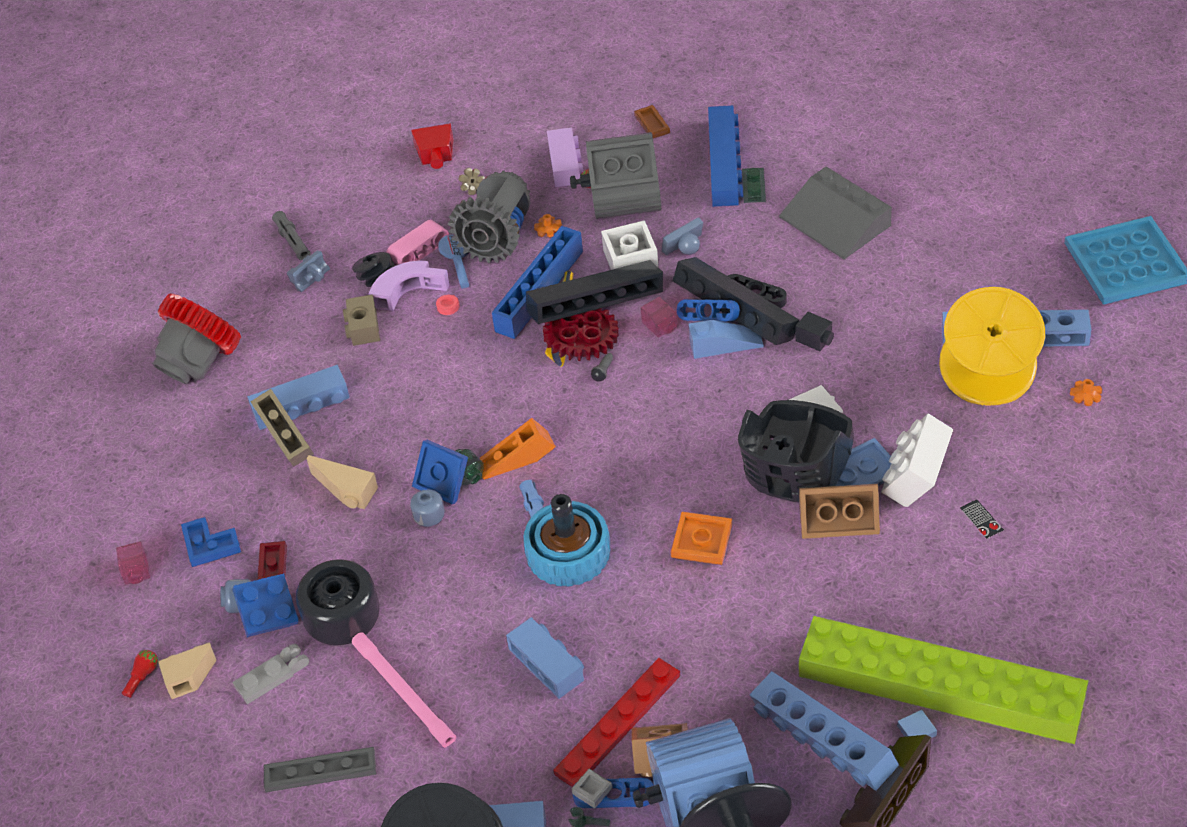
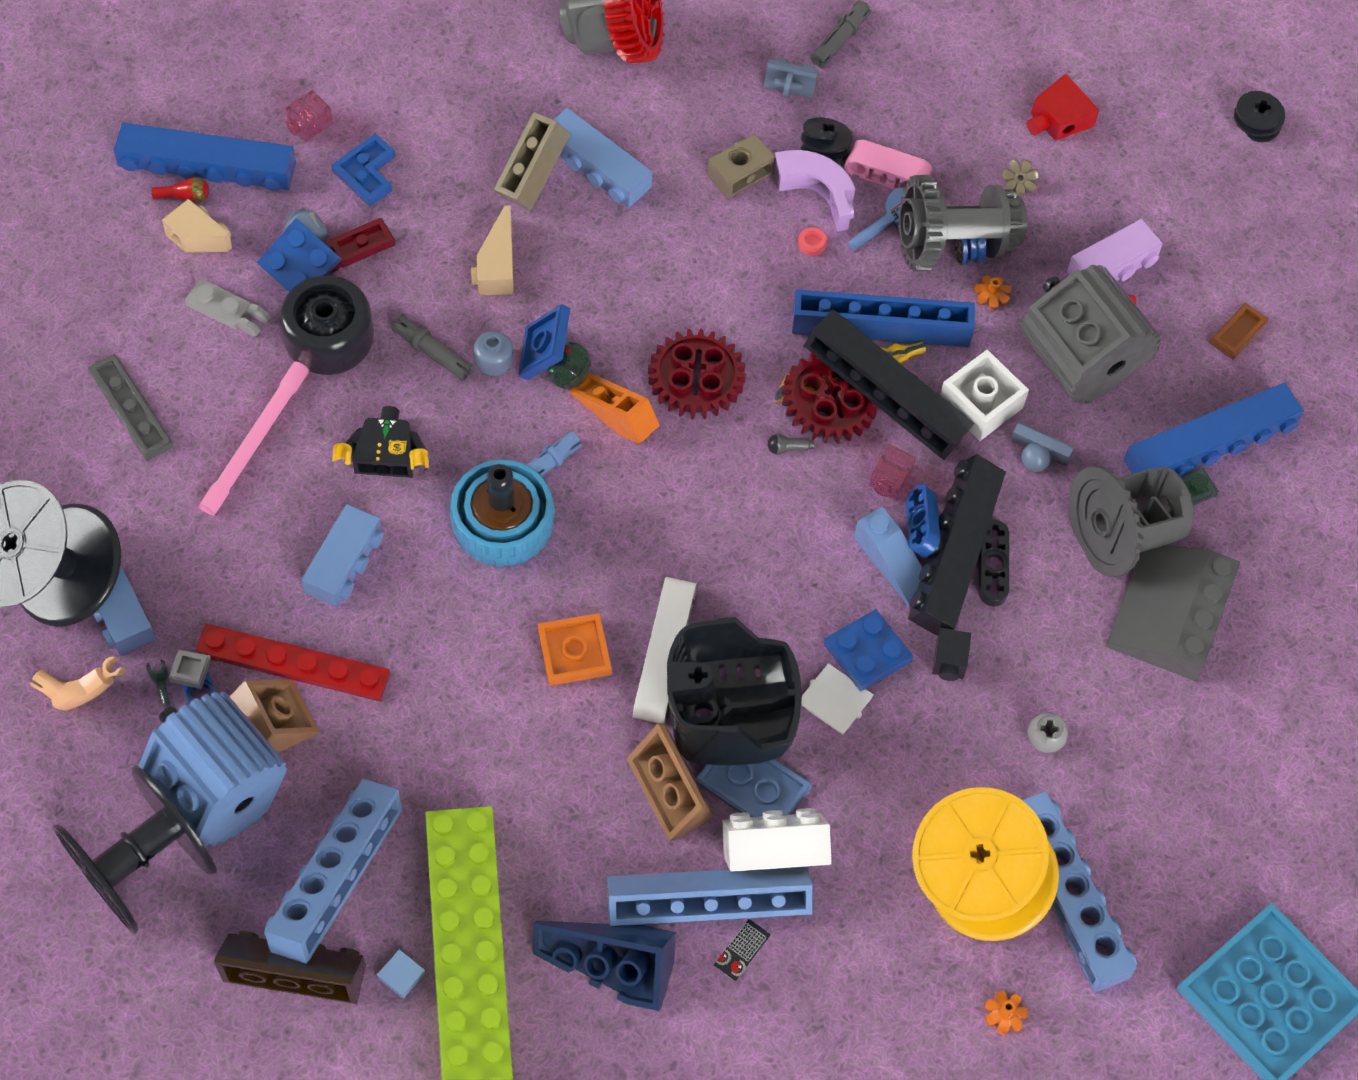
camera: 55 degrees right, 15 degrees up
(119, 645) = (205, 156): none -> blue brick
(395, 547) = (422, 340): none -> dark grey pin
(468, 598) = (383, 447): none -> black torso
(503, 58) = (1259, 115): none -> black piece
(516, 397) = (668, 370): none -> dark red gear
(731, 483) = (671, 617): none -> white beam
(771, 190) = (1115, 527): none -> dark grey piece
(787, 376) = (868, 650): none -> blue plate
(896, 303) = (1038, 737): none -> light grey piece
(938, 519) = (709, 895): none -> medium blue brick
(962, 584) = (622, 957): none -> dark blue wedge

